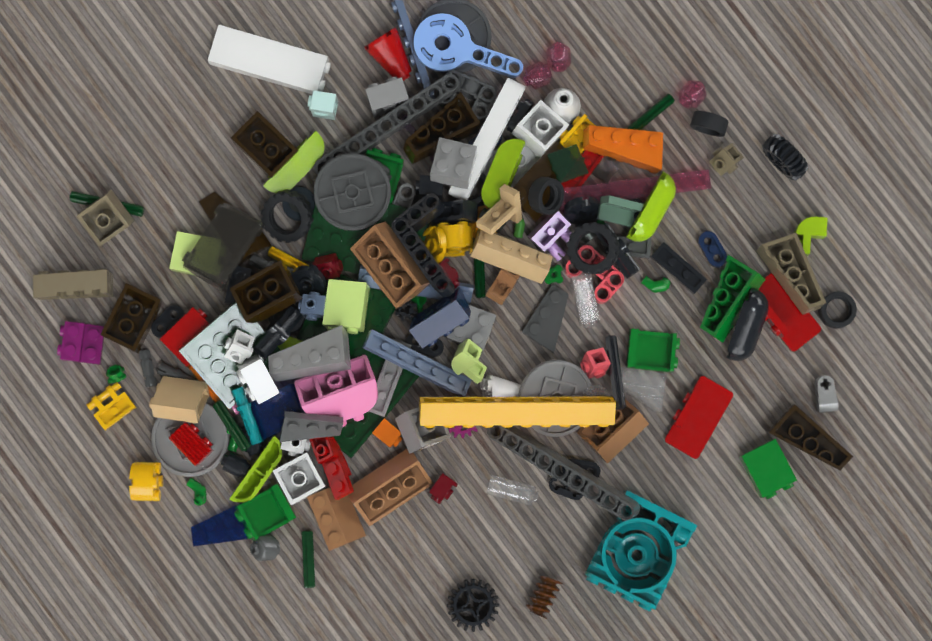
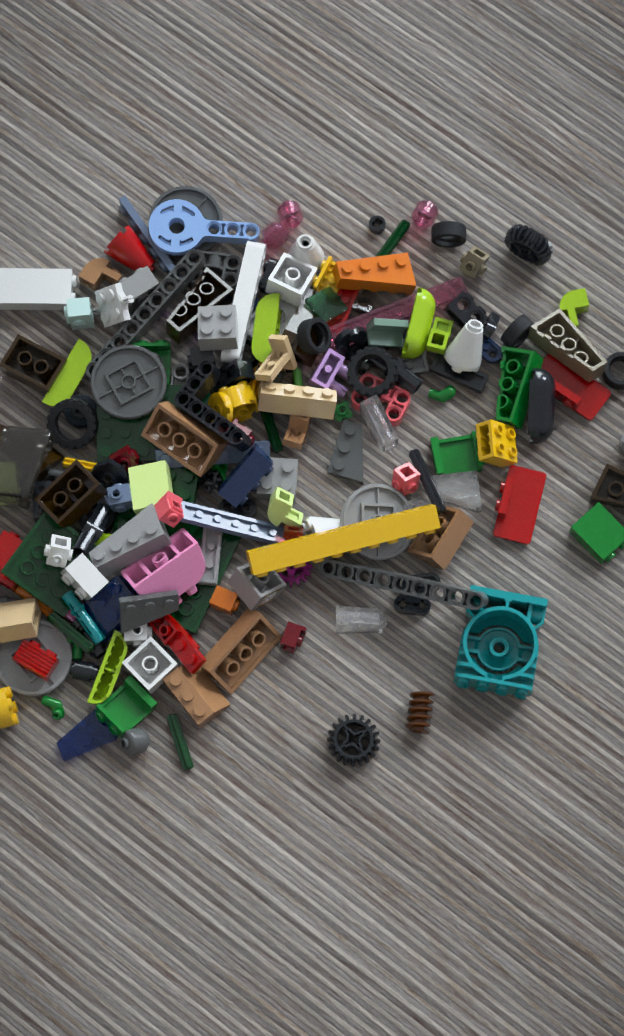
camera: 10 degrees left, 10 degrees down
(354, 63) = (97, 271): none -> medium nougat brick
(357, 107) = (112, 305): none -> white plate
(357, 336) = (169, 509): none -> coral window
(470, 387) = (292, 532): none -> clear red tile
(637, 87) = (381, 220): none -> black bush
(670, 226) = (439, 335): none -> lime brick
(691, 249) = (466, 348): none -> white cone
(693, 352) = (496, 443): none -> yellow brick
(699, 213) = (462, 317): none -> black brick
(723, 229) = (490, 325): none -> black beam
(747, 244) = (517, 331): none -> black tyre

